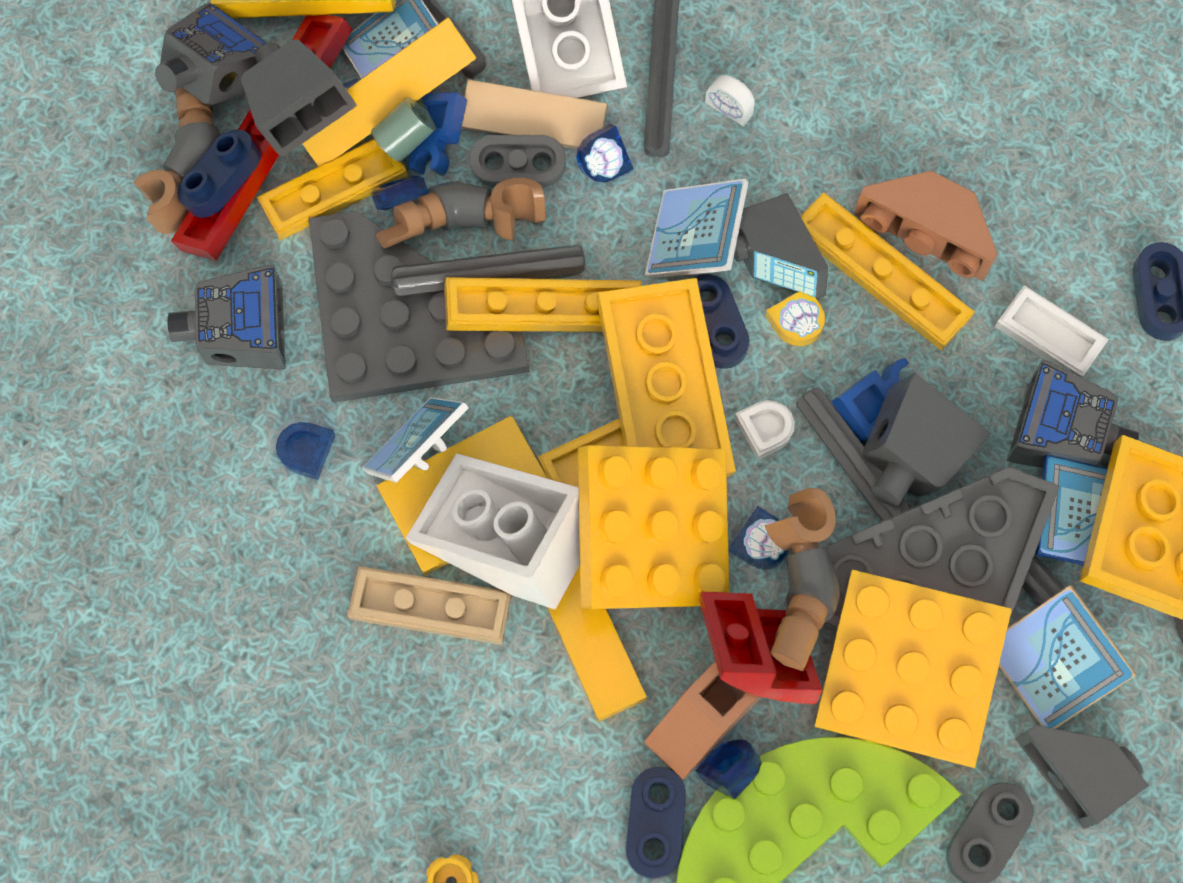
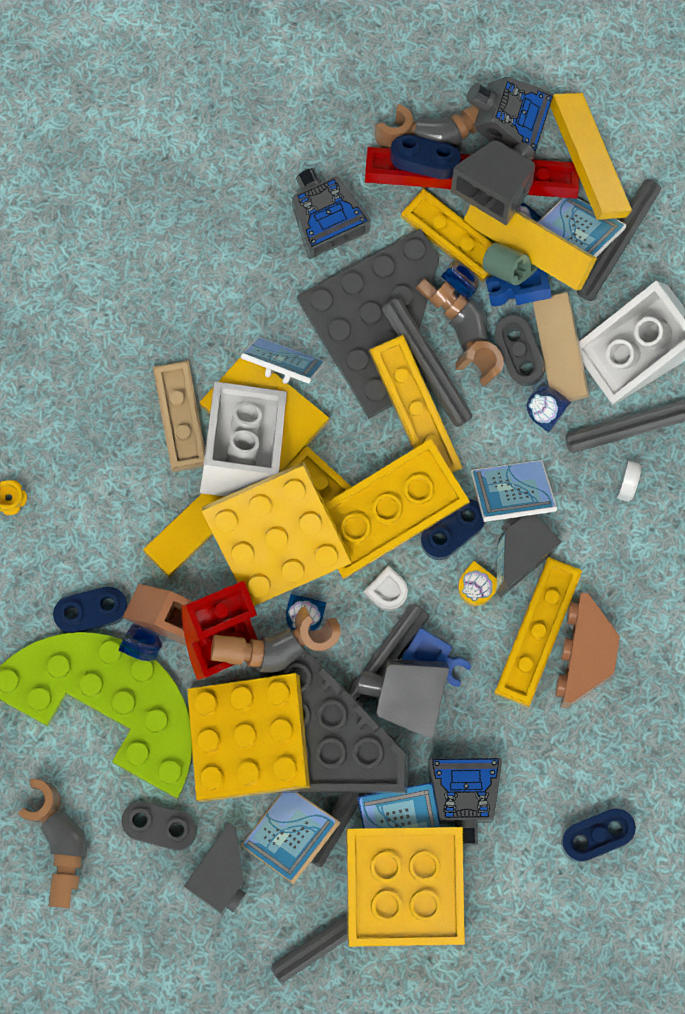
camera: 65 degrees right, 5 degrees up
(304, 448) = (256, 294): clear blue tile -> none
(1051, 332) = (536, 766): white tile -> none

